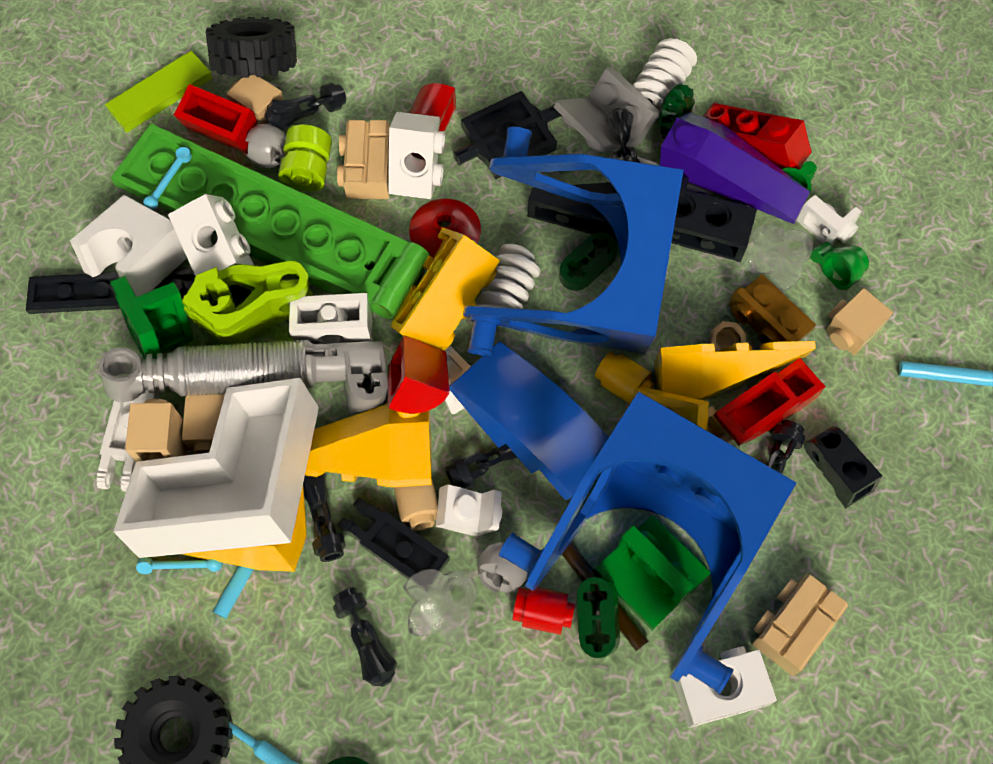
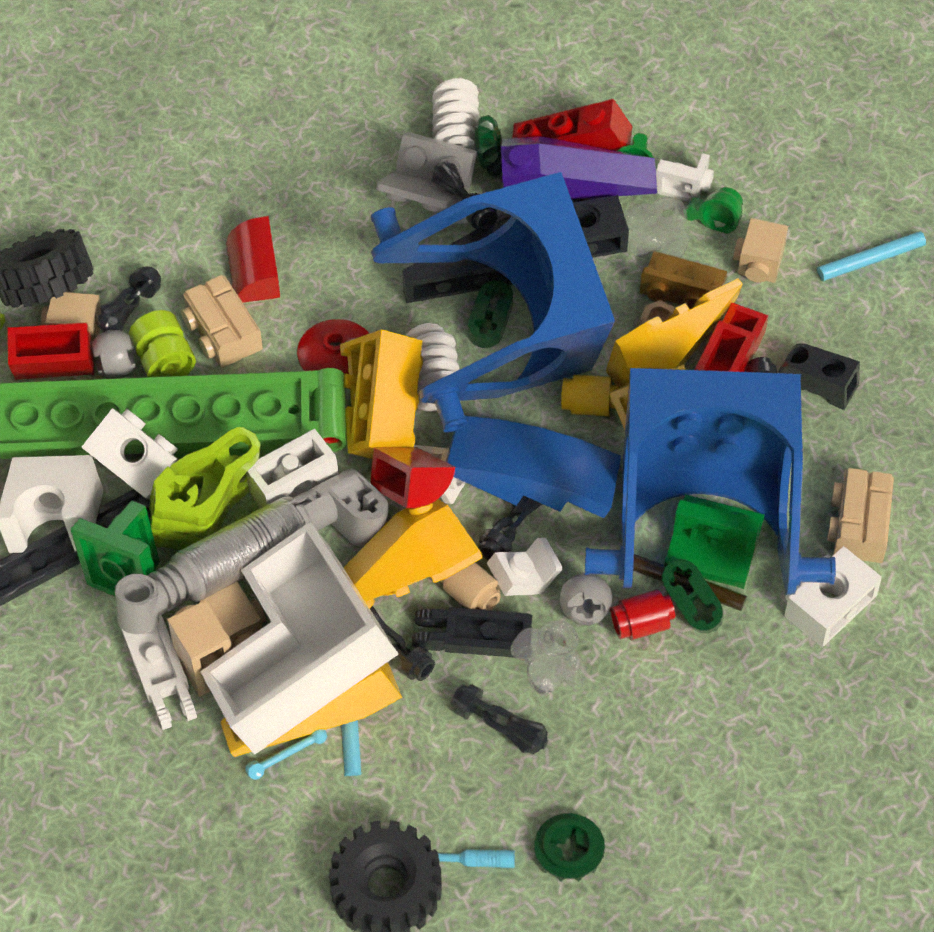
camera: 30 degrees left, 10 degrees down
(183, 156) = (44, 397): medium azure hinge -> none
(419, 135) = (263, 273): white brick -> none
(489, 129) = (338, 238): black plate -> none

